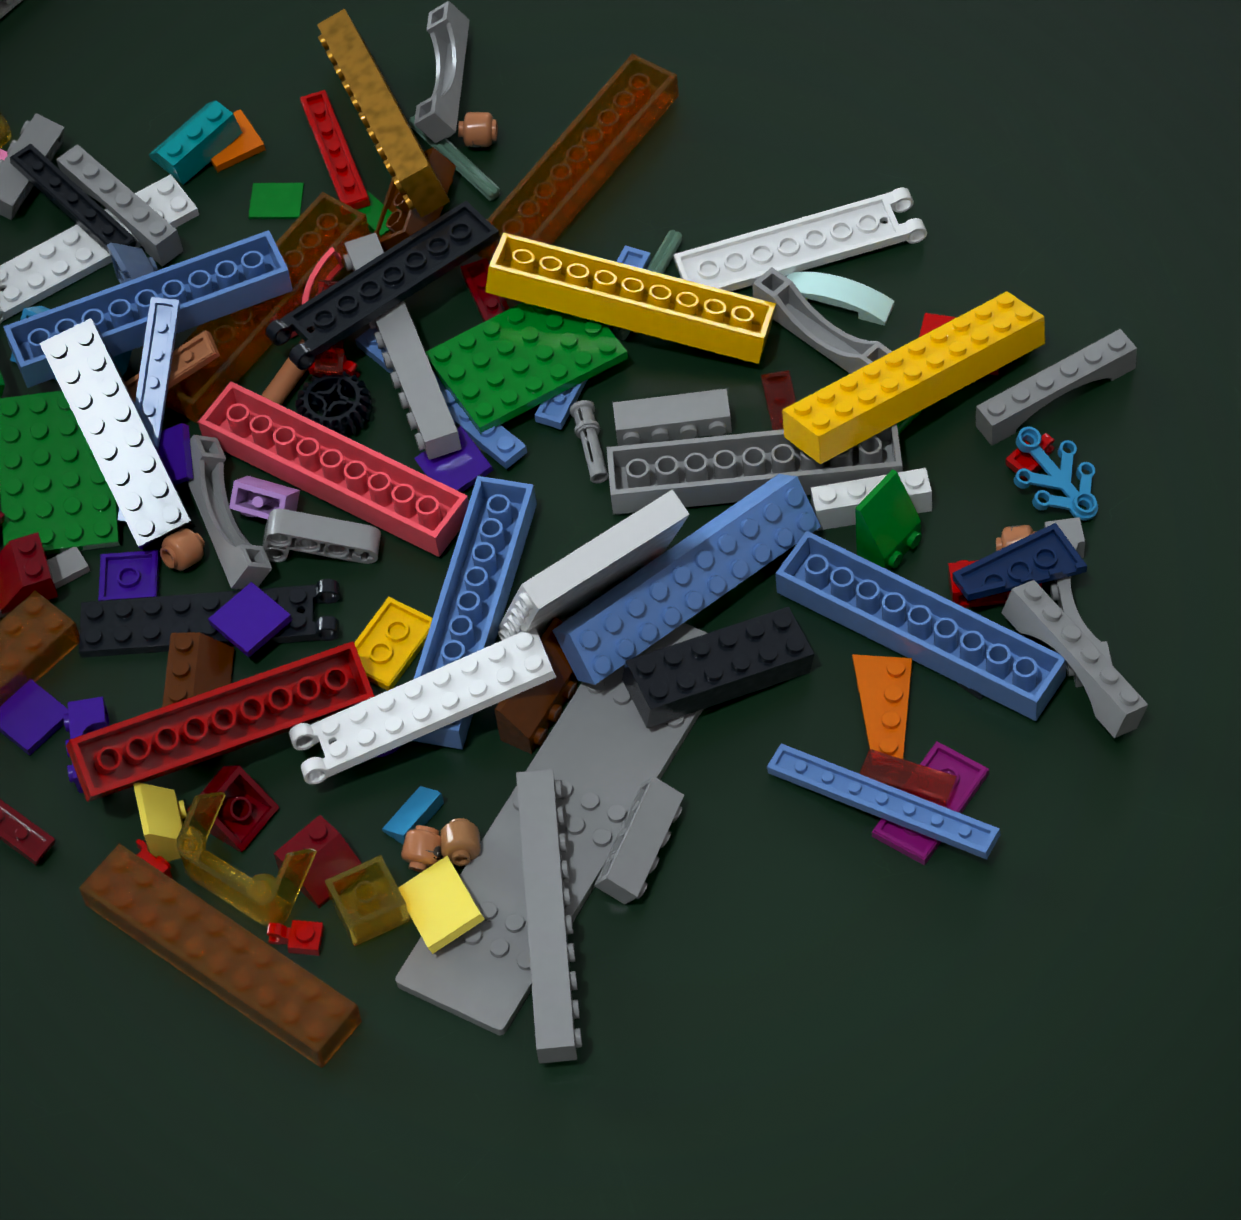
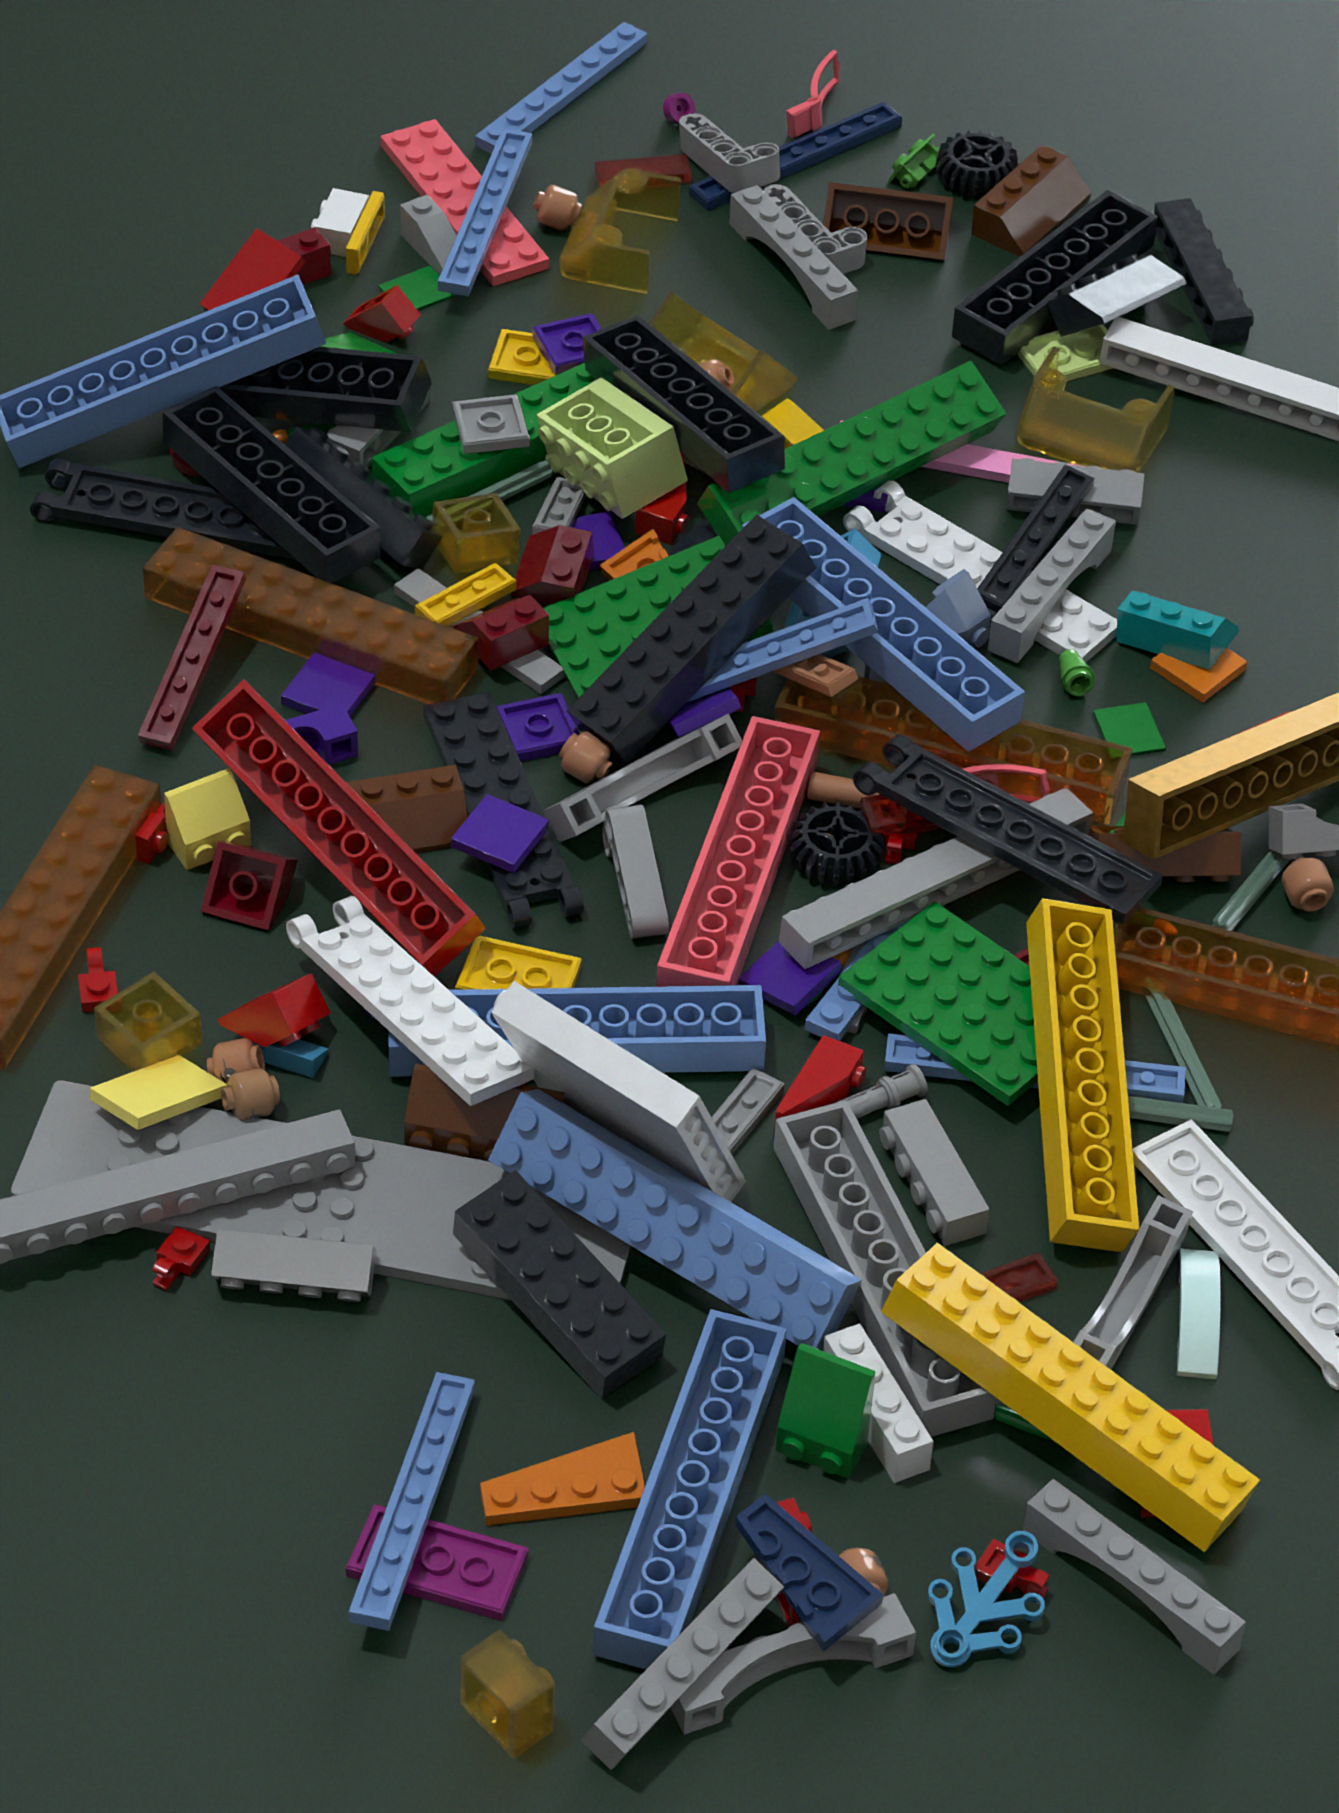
camera: 65 degrees right, 10 degrees down
(213, 215) = (1076, 675): none -> bright green cone
(259, 497) = (675, 809): lavender brick -> none
(260, 897) = (131, 914): clear yellow windscreen -> none
(331, 858) = (202, 969): dark red slope -> none
(386, 807) = (279, 1014): none -> red slope
(562, 464) = (825, 1078): none -> red slope
(566, 522) = (746, 1107): none -> light grey tile
(598, 921) = (179, 1253): none -> red plate
(611, 245) = (1183, 1051): none -> sand green axle
(909, 777) = (457, 1522): clear red tile -> none
(1072, 770) = (507, 1693): none -> clear yellow brick

